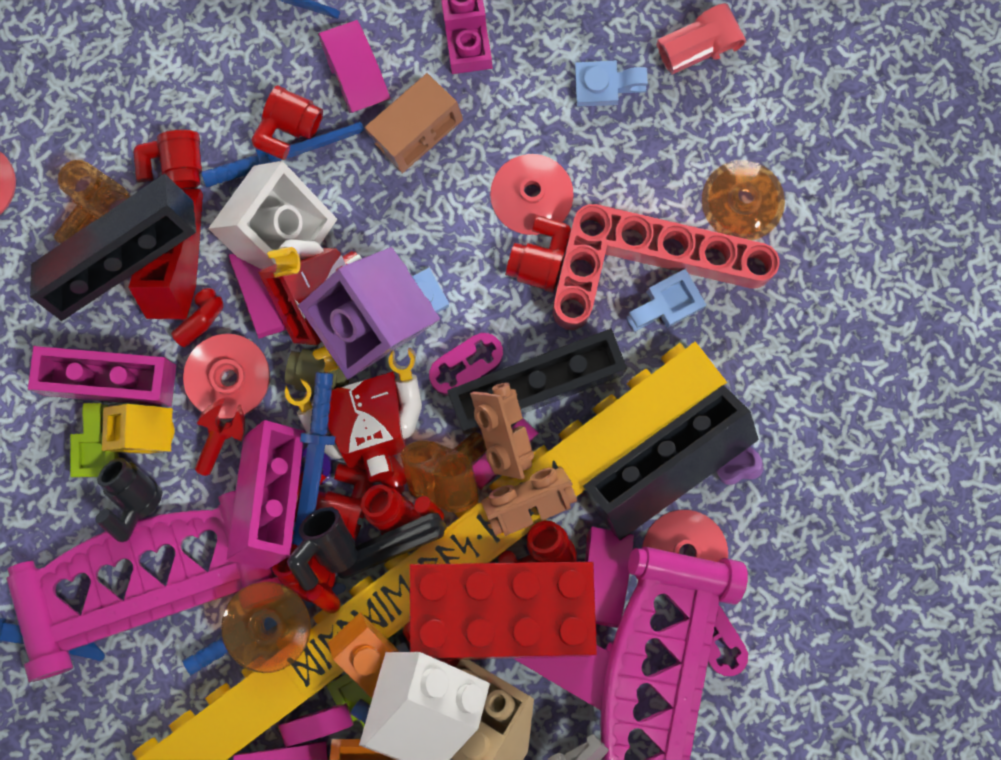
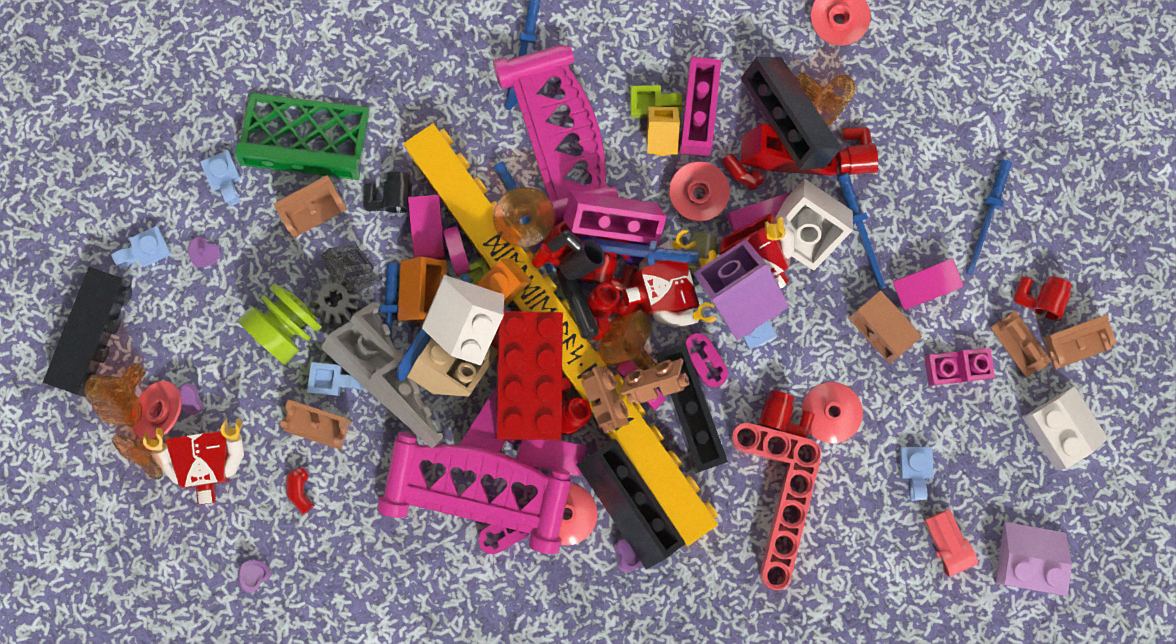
camera: 90 degrees right, 0 degrees up
(131, 492) = (618, 127): black piece -> none
(217, 434) = (658, 185): red bar -> none
(288, 114) = (891, 236): red piece -> none
(671, 300) = (749, 511): light blue plate -> none
(731, 215) = (810, 570): clear orange dish -> none

